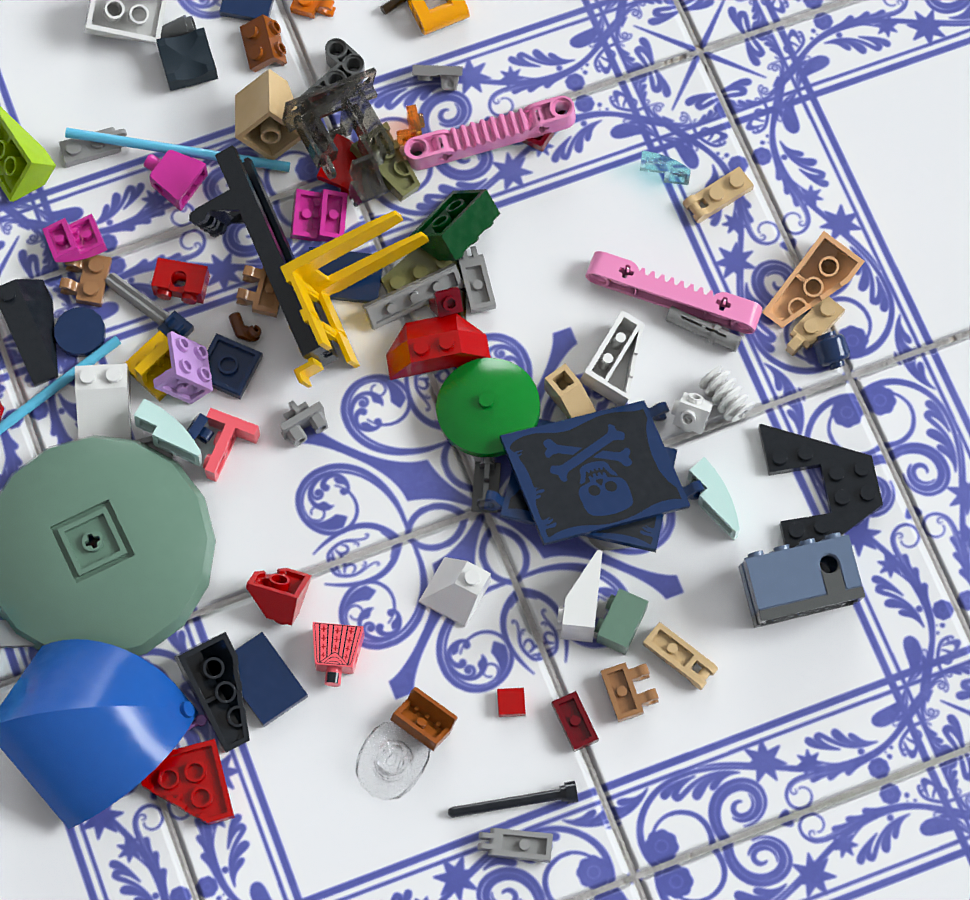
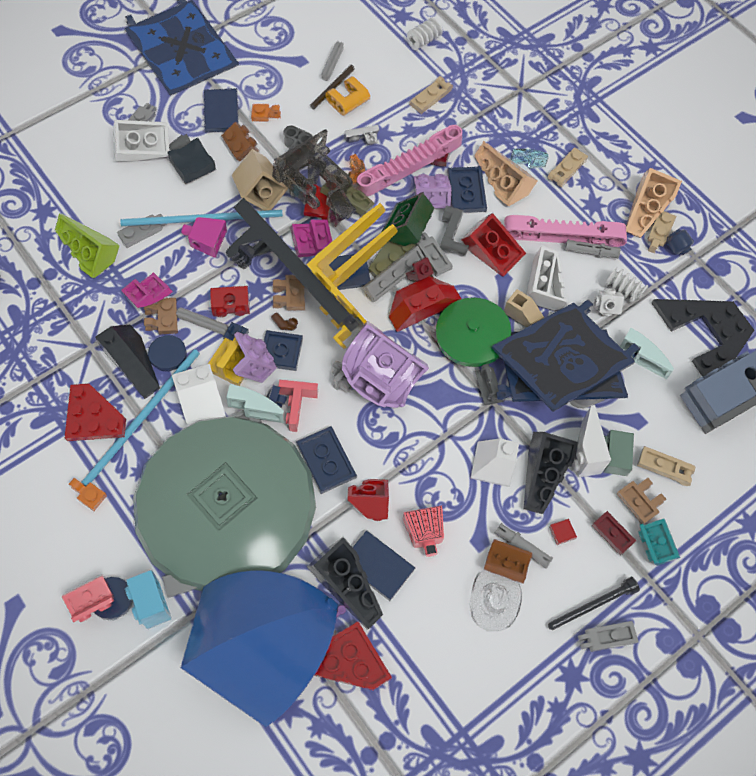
camera: 20 degrees left, 5 degrees down
(241, 528) = (326, 459): none -> dark blue tile
(345, 427) = (381, 368): none -> lavender piece
(449, 700) = (518, 541): none -> light grey pin
(510, 183) = (436, 189): none -> lavender bracket
(520, 613) = (546, 466): none -> black wedge
(524, 234) = (453, 216): none -> dark grey beam
(560, 194) = (467, 189): none -> dark blue tile
(561, 31) = (431, 95): none -> tan plate
(565, 289) = (493, 245): none -> red slope
(623, 191) = (506, 177): none -> light nougat wedge
(626, 748) = (659, 542): none -> teal bracket

